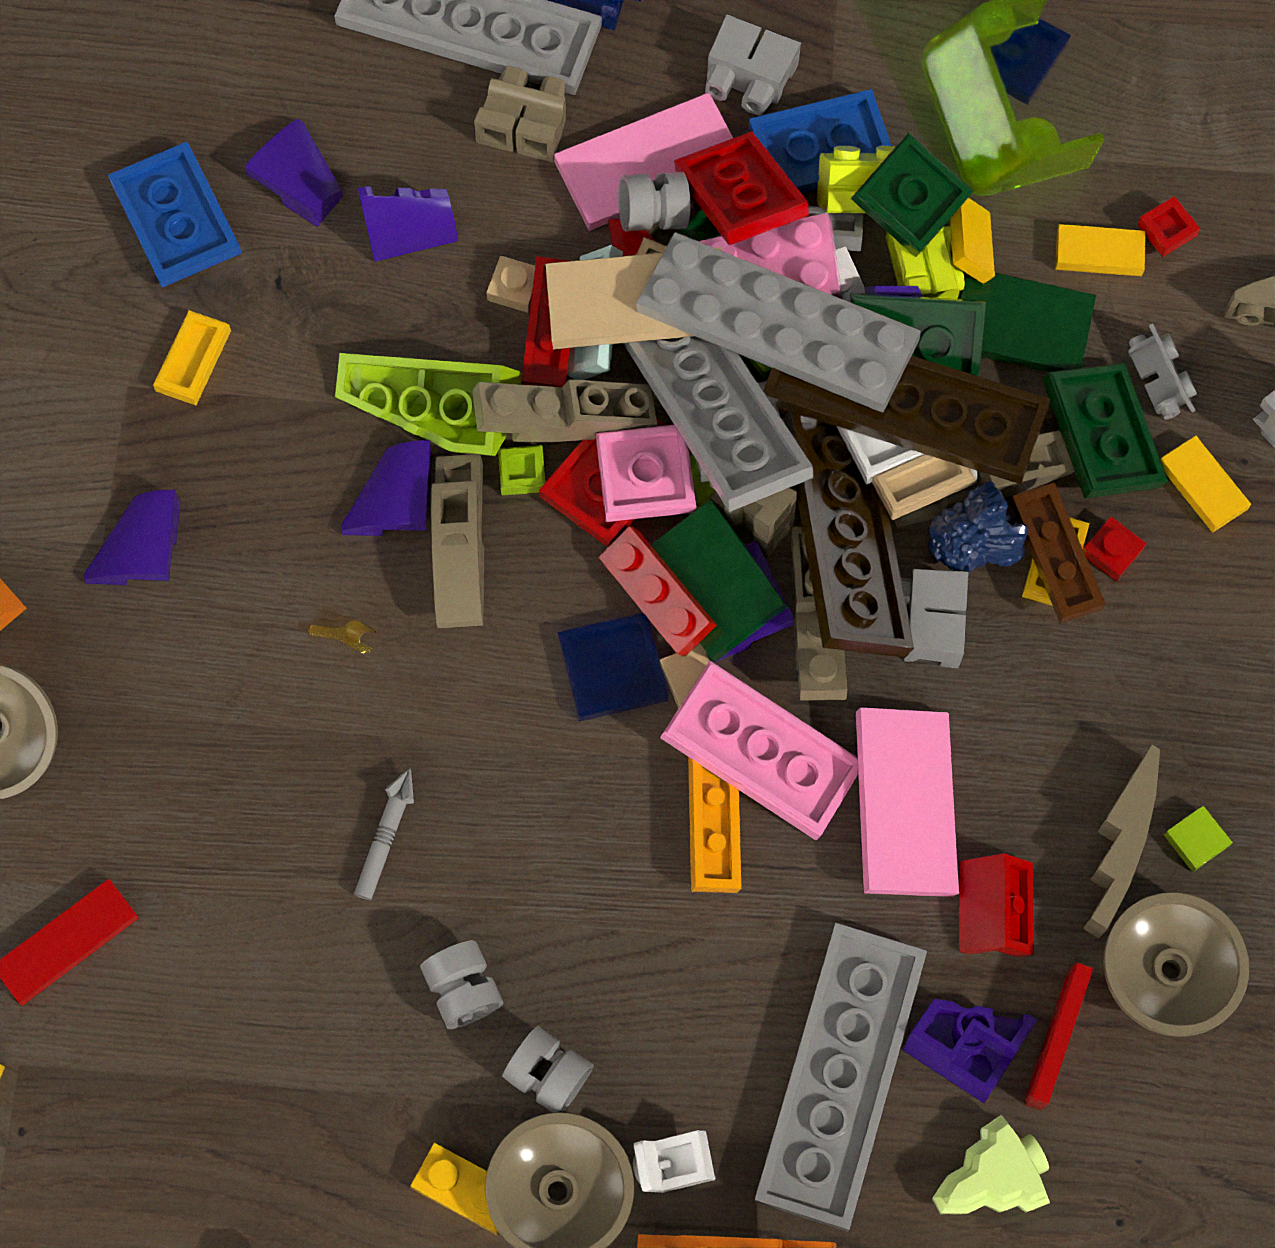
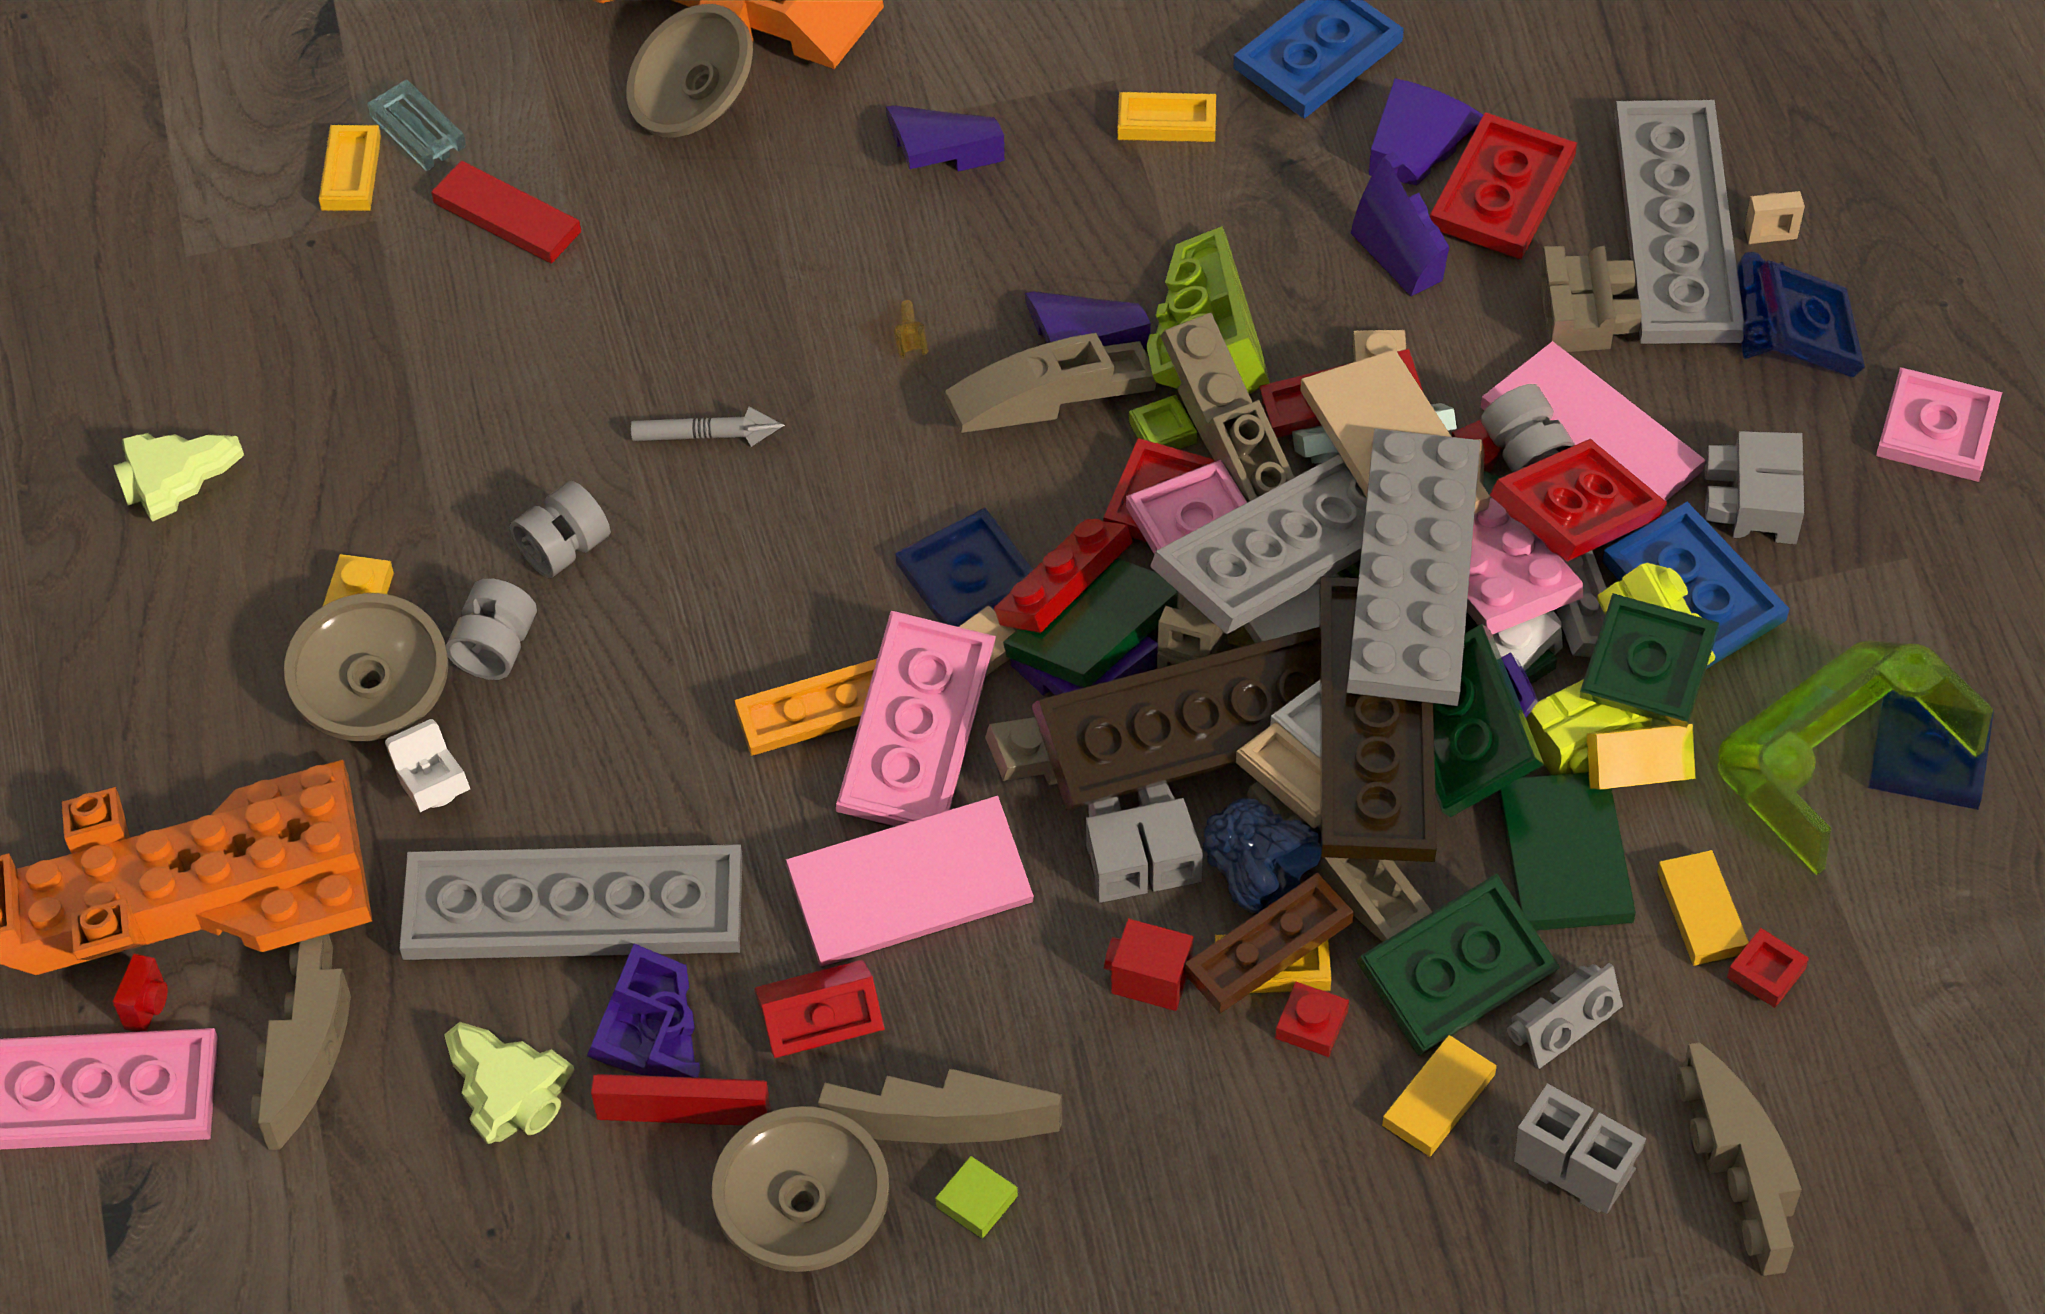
camera: 75 degrees right, 15 degrees down
(381, 129) = (1503, 185): none -> red plate
(1040, 645) = (1149, 964): none -> red brick

